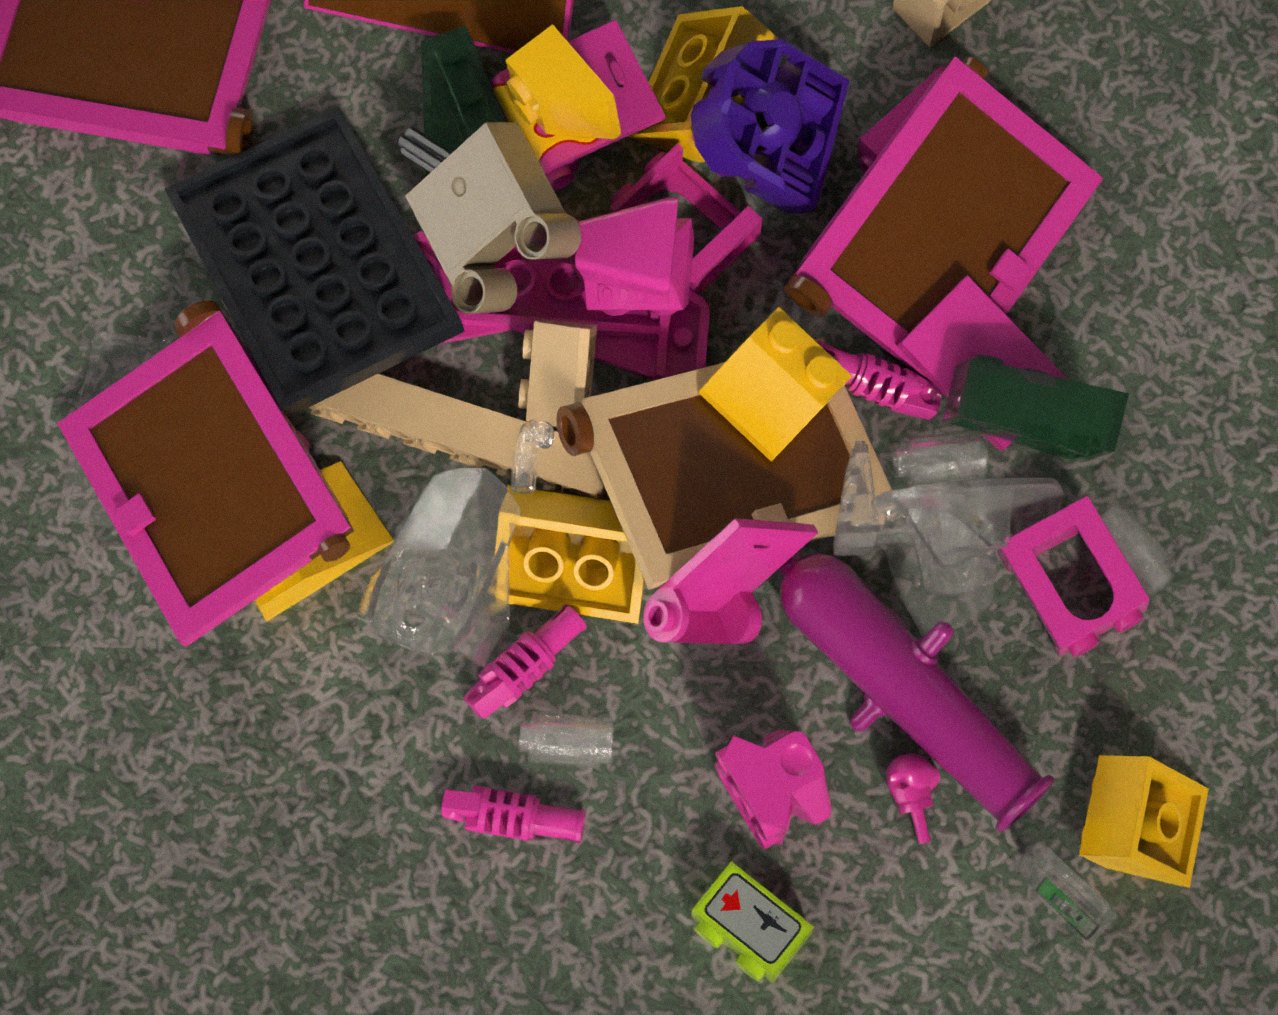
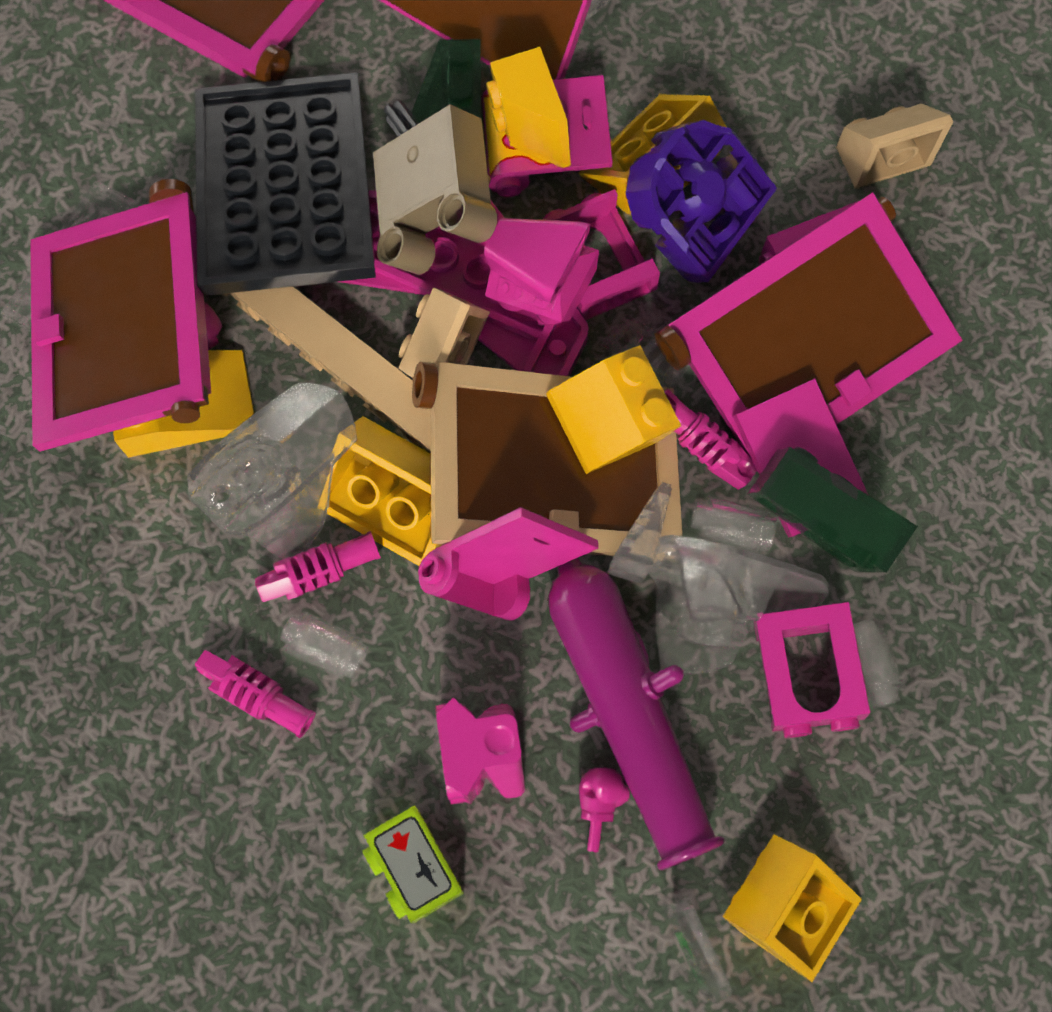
camera: 20 degrees right, 0 degrees up
(525, 456) = (392, 383): clear arm -> none

